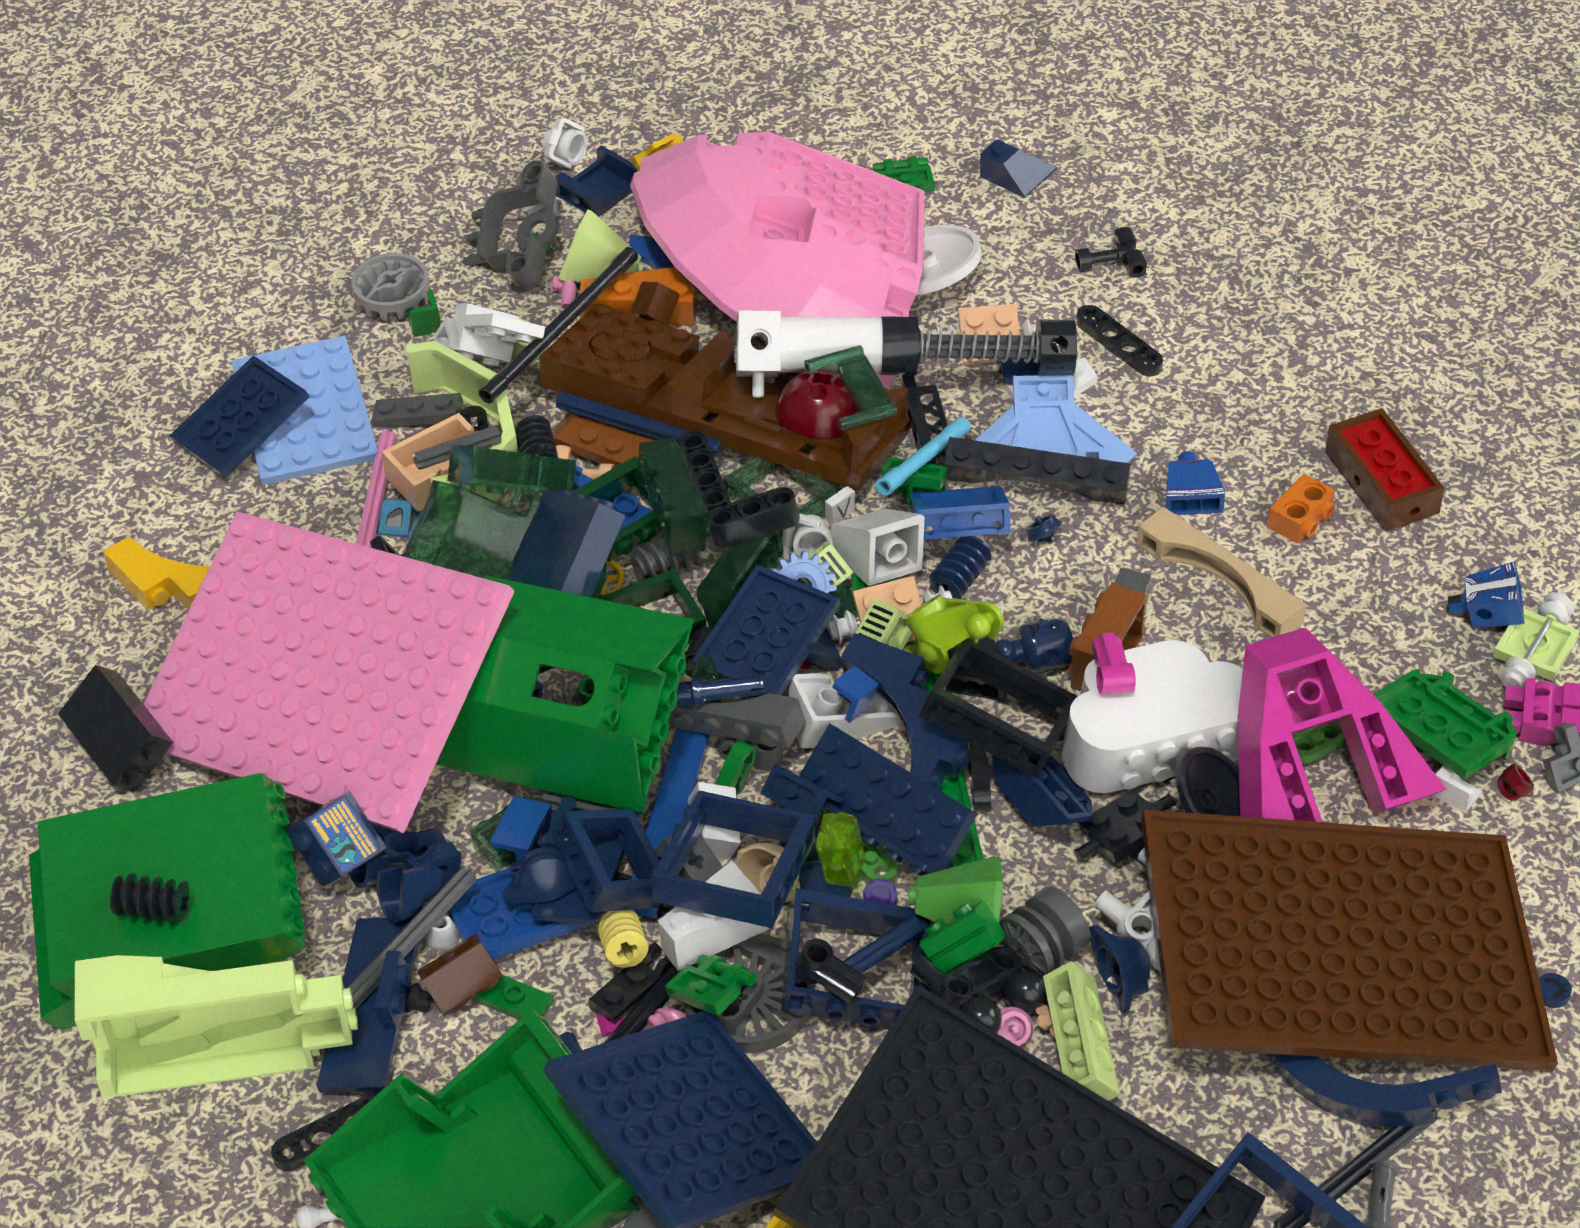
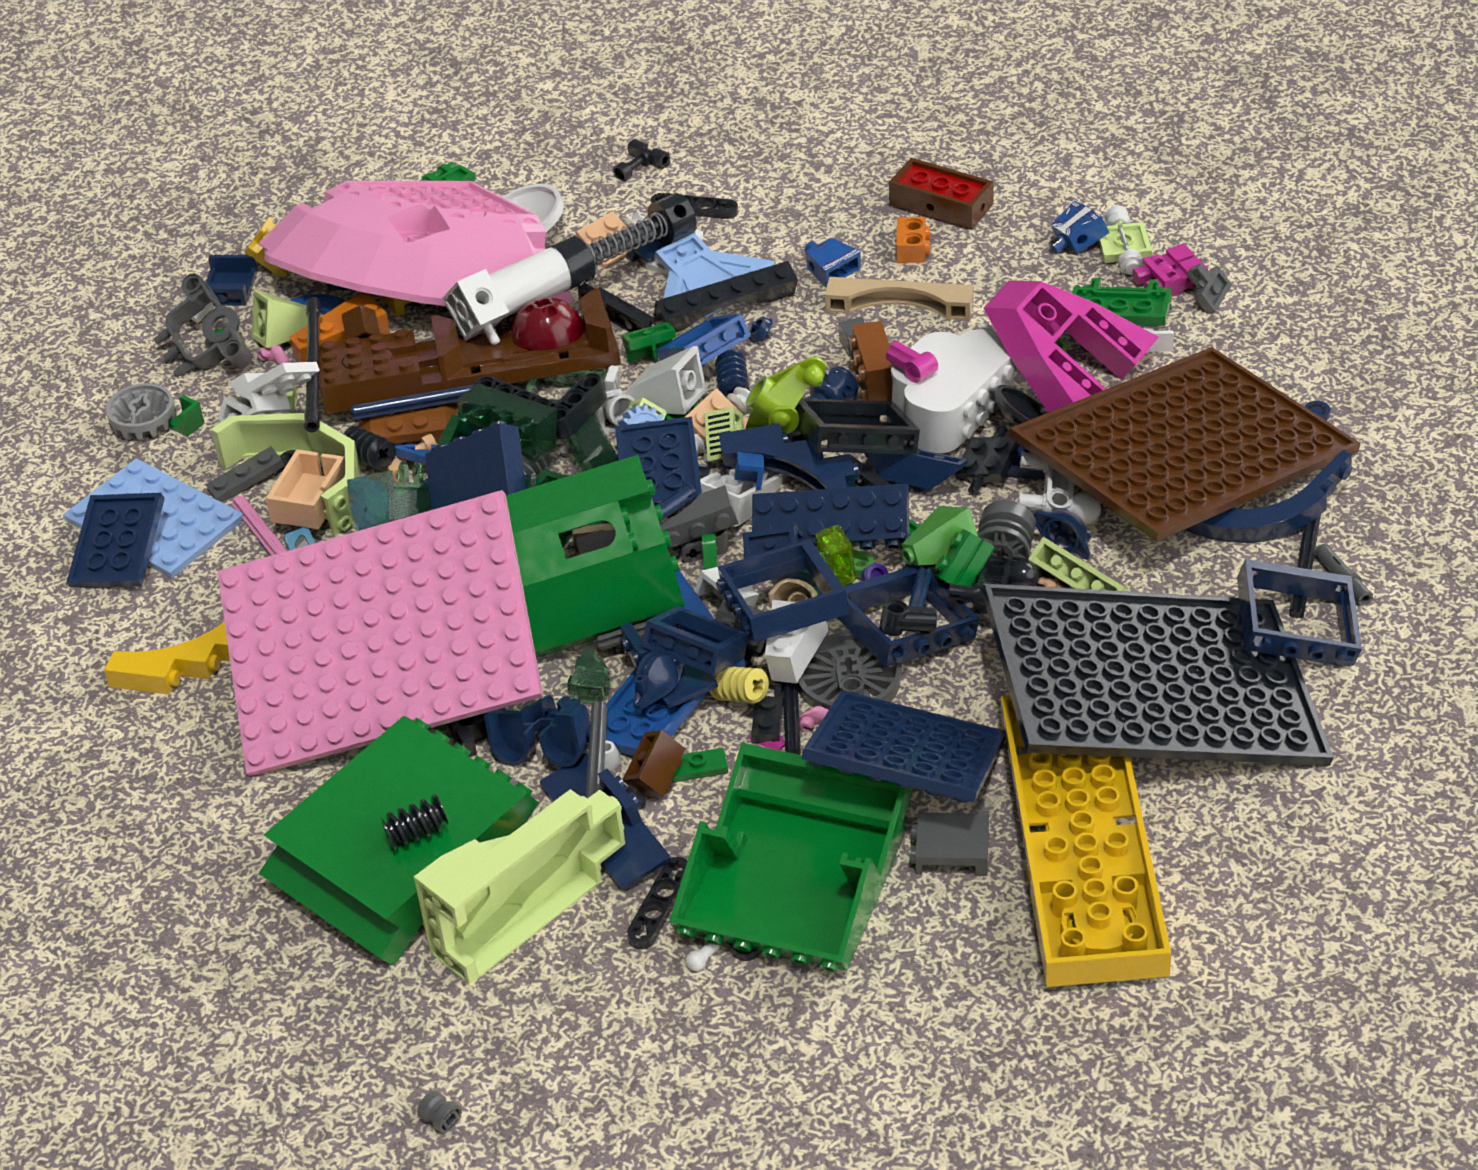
camera: 35 degrees left, 5 degrees down
(115, 728) = (239, 765): black brick -> none
(335, 838) = (492, 728): slope -> none
(441, 452) = (323, 467): dark grey axle -> none
(509, 470) = (376, 458): clear green wedge -> none
(522, 826) = (607, 663): blue panel -> none
(565, 146) = (177, 267): white piece -> none
(710, 985) = (830, 674): green plate -> none
(860, 382) = (573, 292): clear green plate -> none
(898, 475) = (647, 339): medium azure piece -> none
(1013, 168) = (518, 141): dark blue slope -> none
(1518, 780) = (1188, 315): dark red tile -> none

